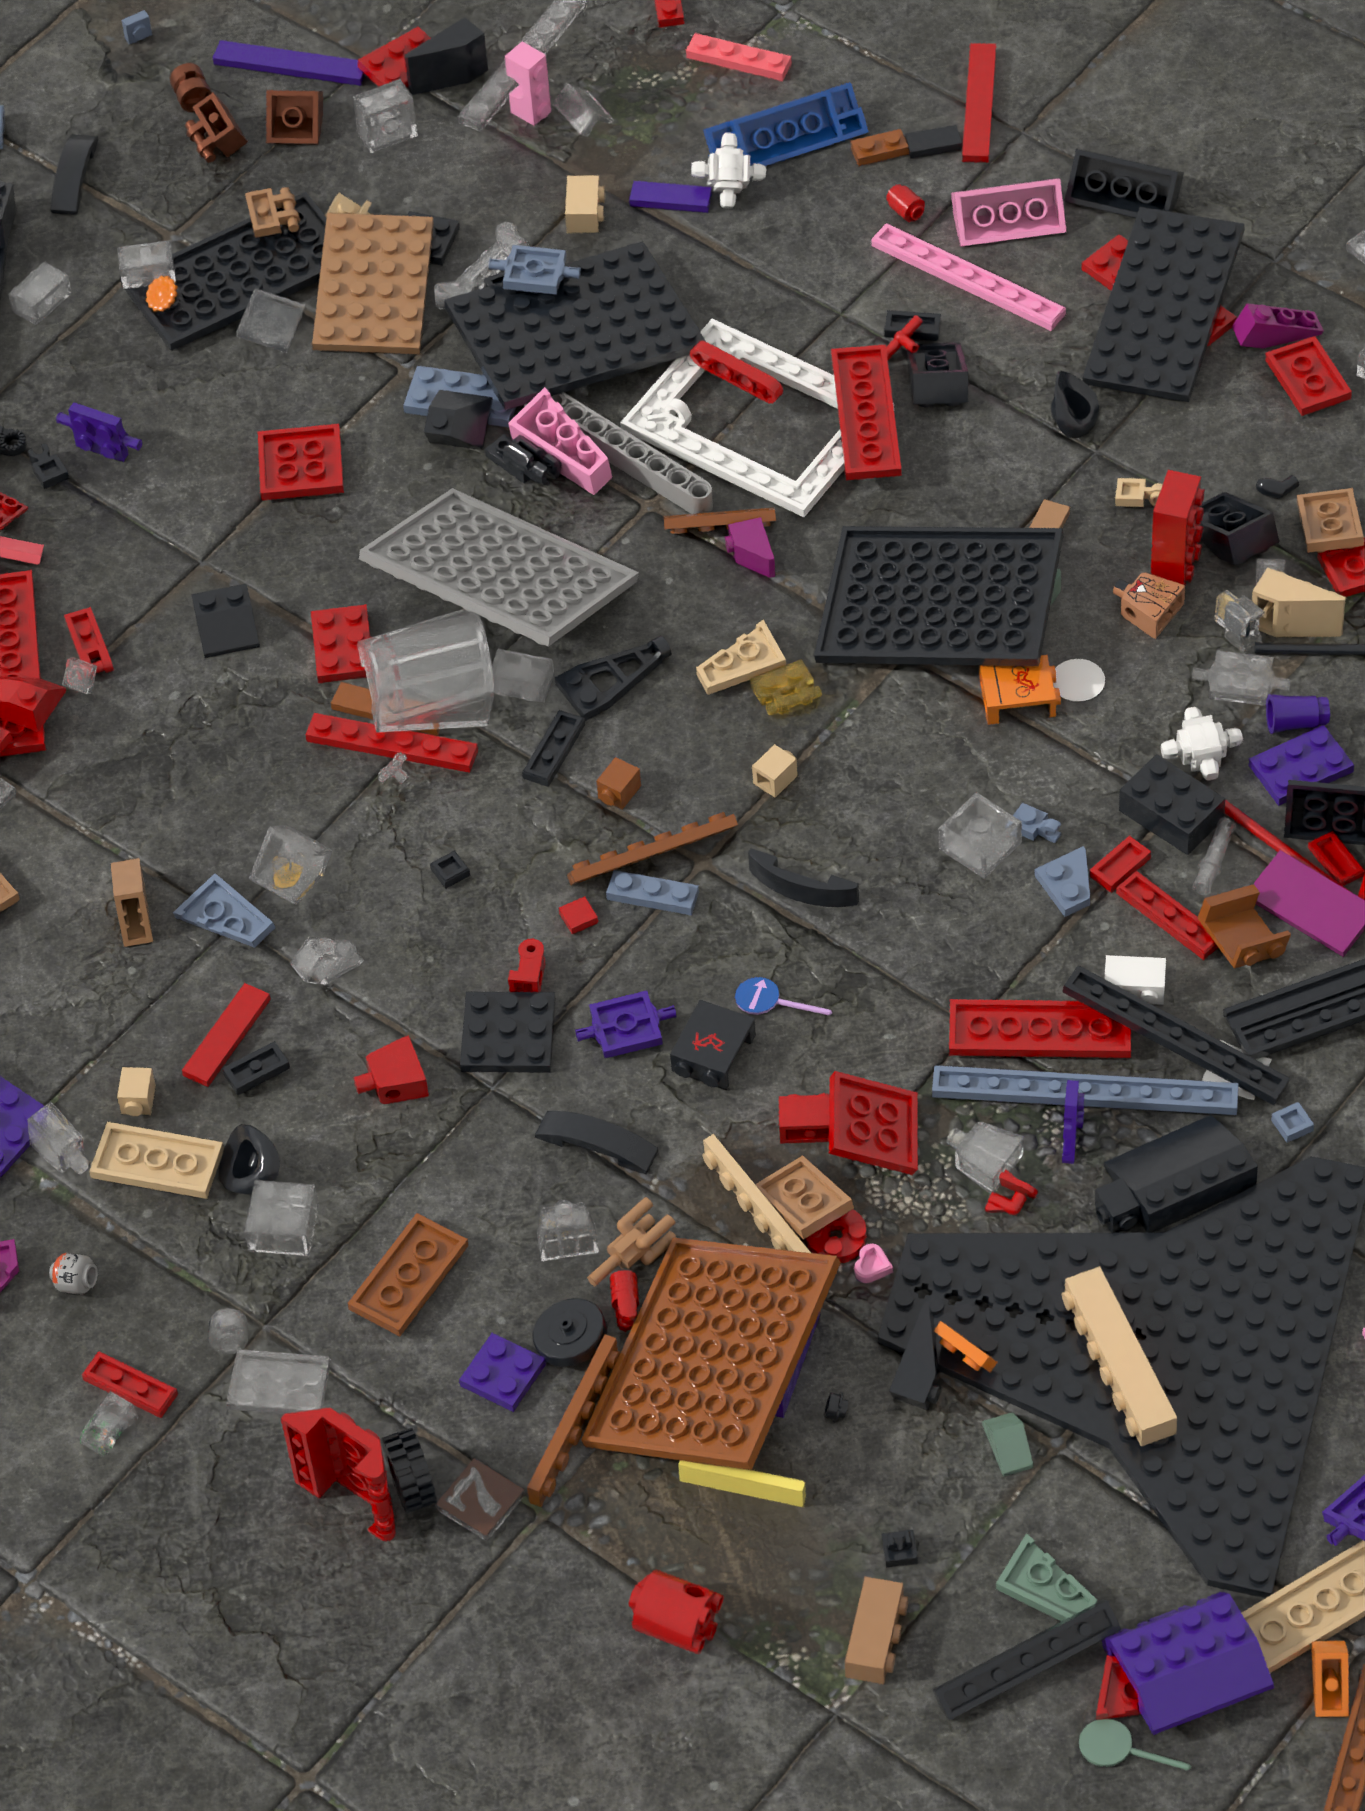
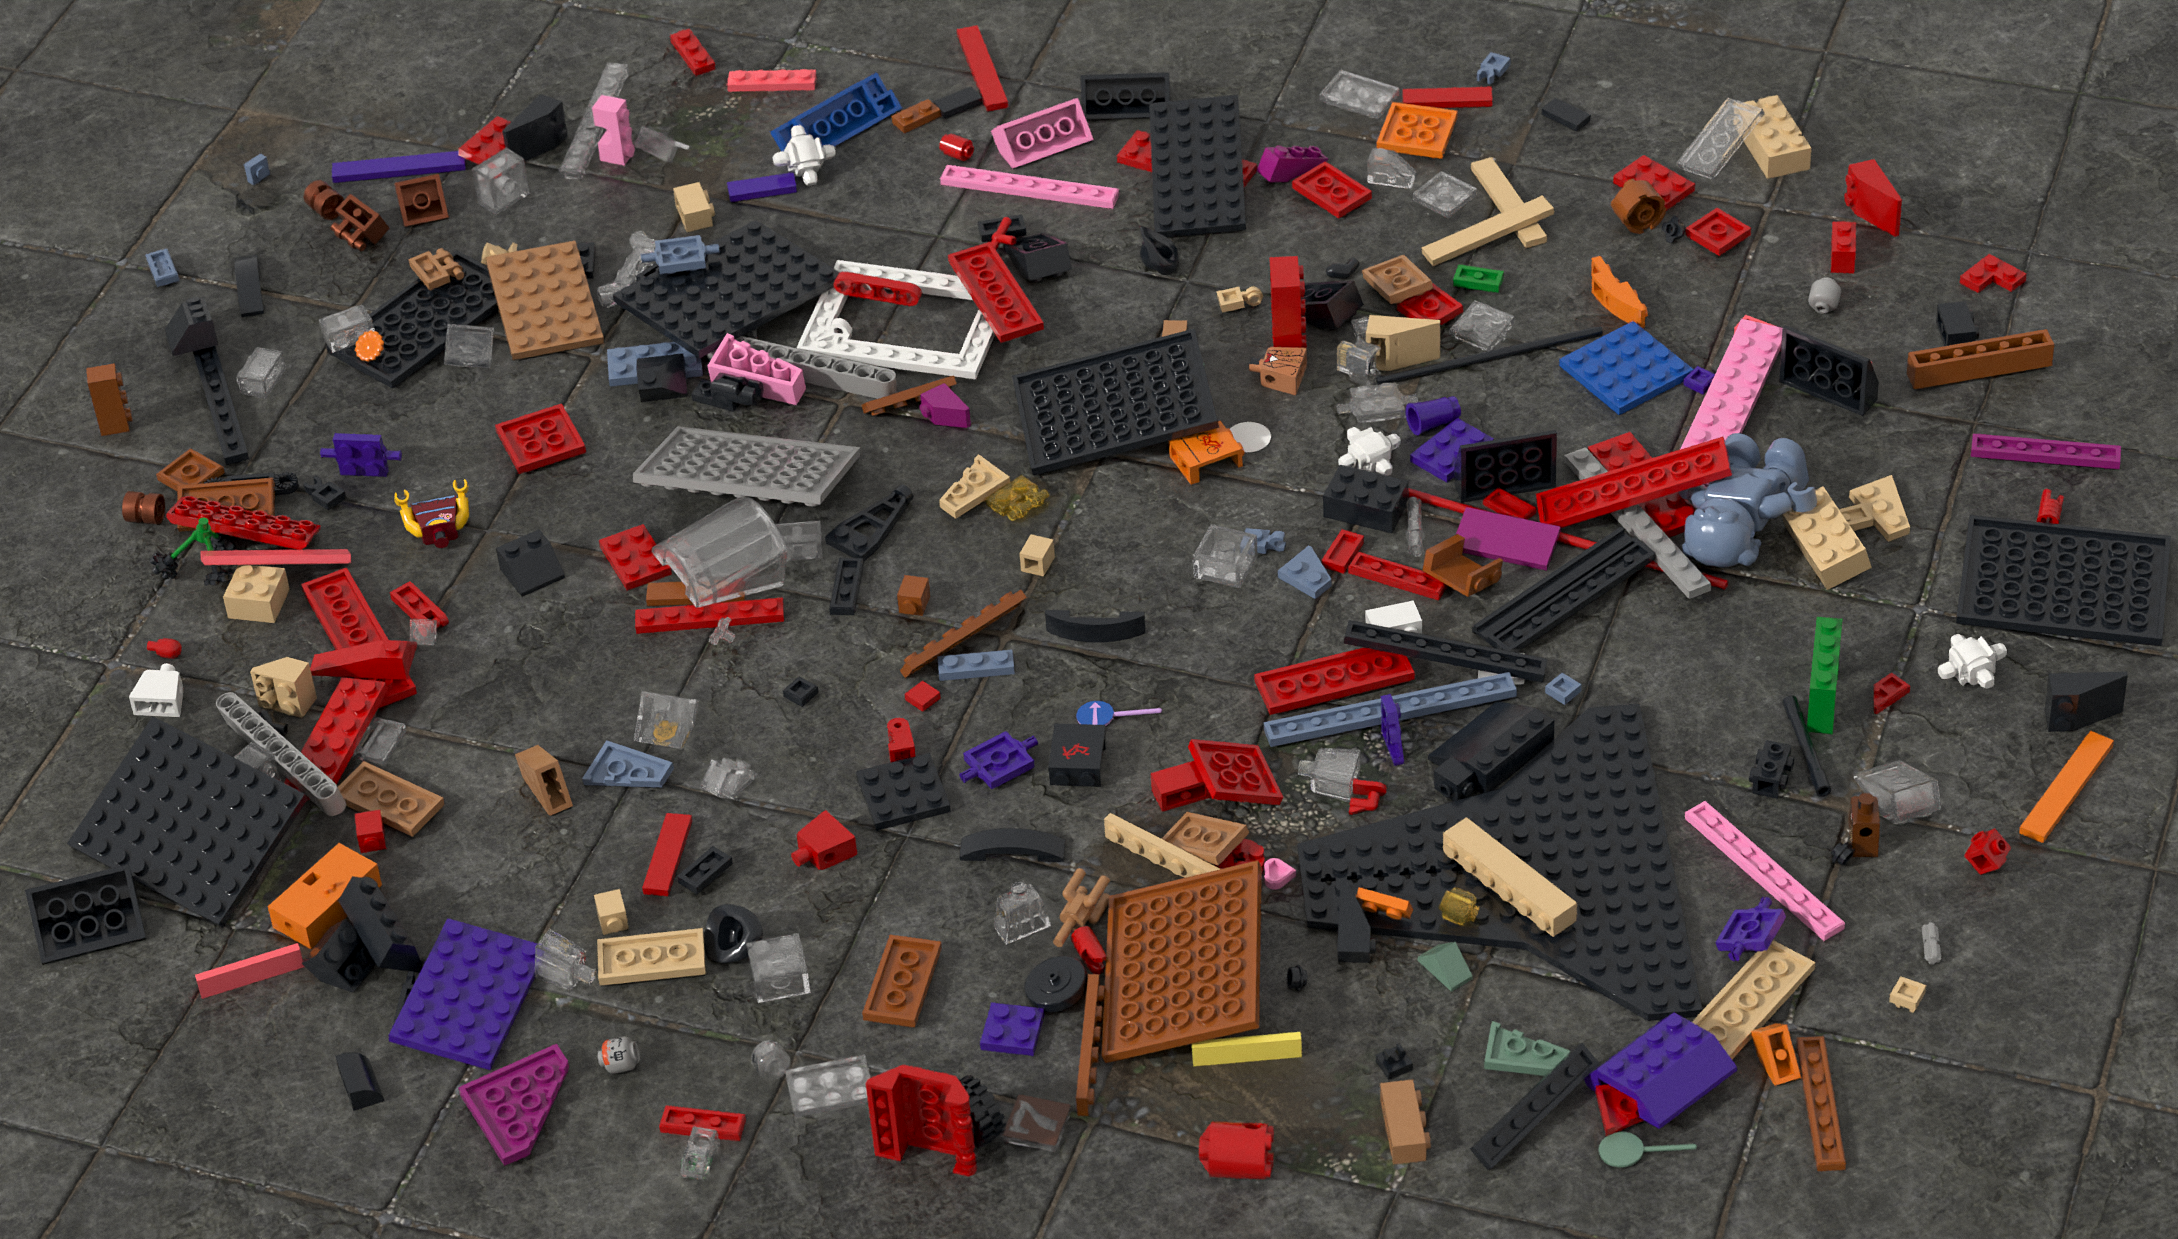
camera: 20 degrees left, 10 degrees down
(150, 535) = (436, 519): none -> torso
(1046, 1377) = (1459, 906): none -> clear yellow head

